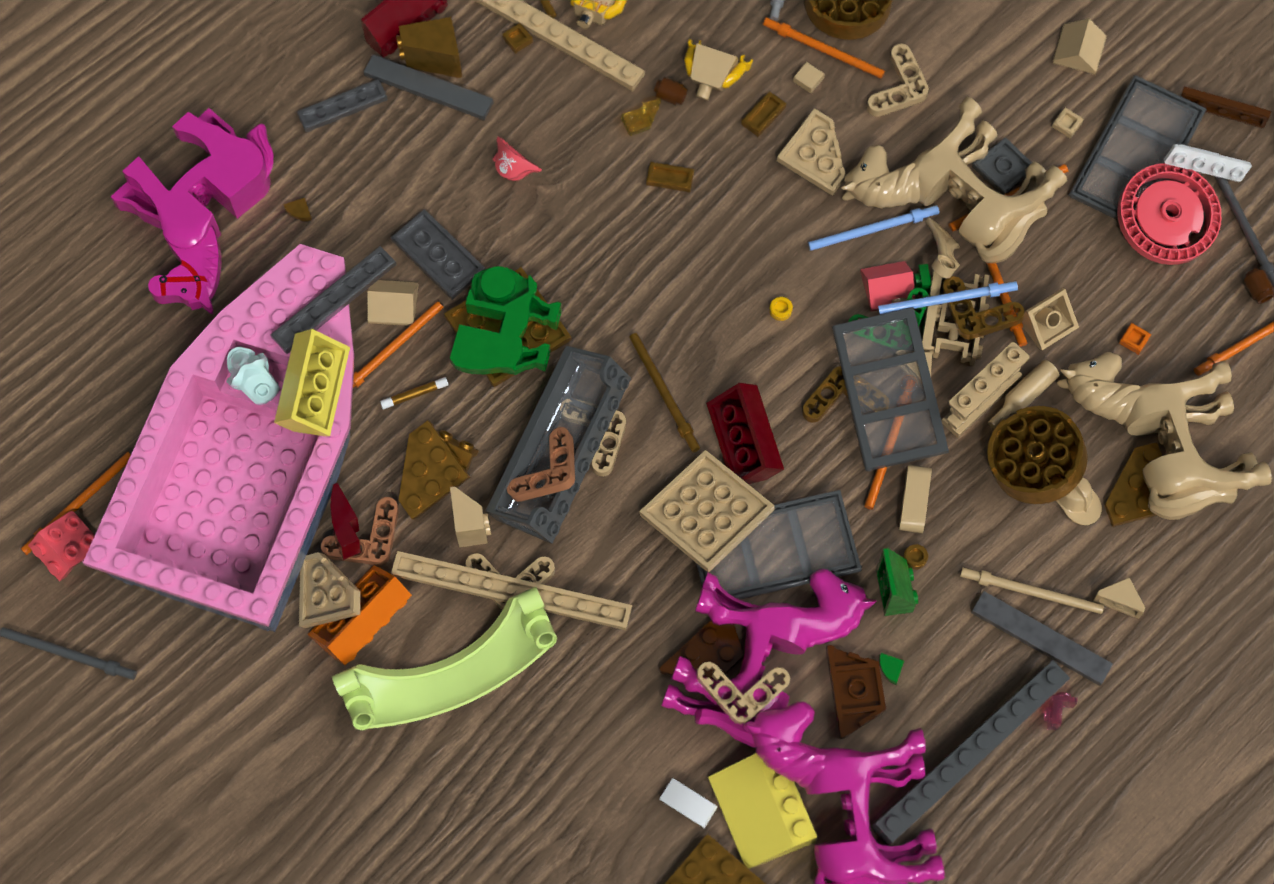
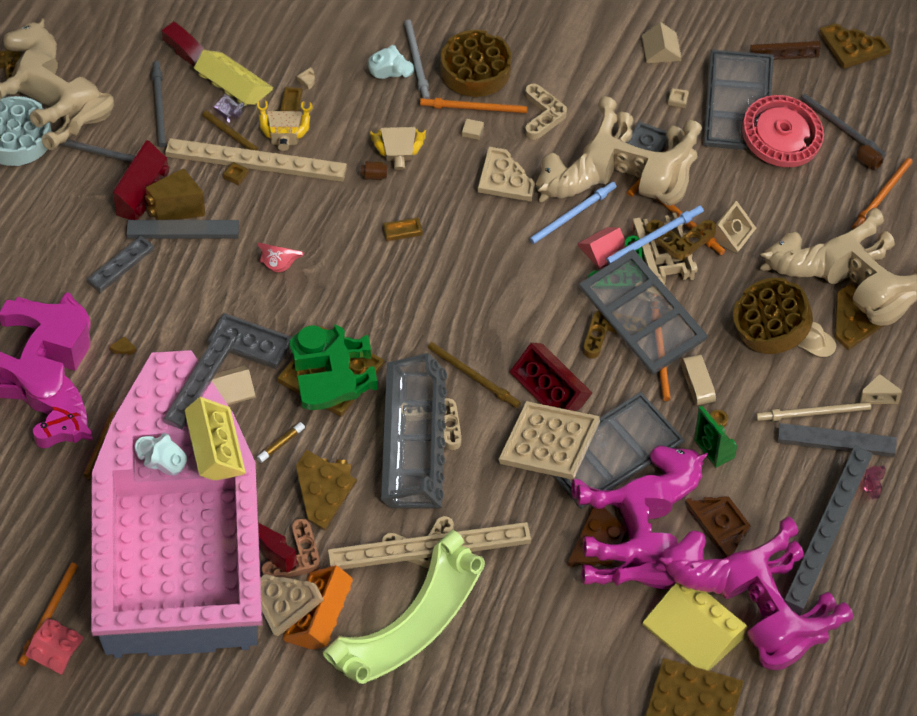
camera: 25 degrees left, 15 degrees down
(359, 376) = (255, 401): orange bar -> none
(469, 520) = (371, 508): tan slope -> none
(556, 471) = (424, 450): nougat beam -> none
(640, 119) = (360, 197): clear yellow slope -> none
(688, 803) = (636, 642): white slope -> none
(744, 700) = (648, 548): tan beam -> none
(763, 114) = (451, 164): pearl gold tile -> none
(781, 308) = (532, 289): yellow tile -> none
(890, 667) = (739, 498): green tile -> none
(922, 278) = (628, 230): green plate -> none
(945, 263) = (635, 206): tan piece -> none
(985, 389) = (713, 285): tan fence -> none
(1026, 391) = (741, 280): tan piece -> none
(1135, 338) = (800, 222): orange tile -> none
(1207, 162) = (793, 87): white bracket -> none

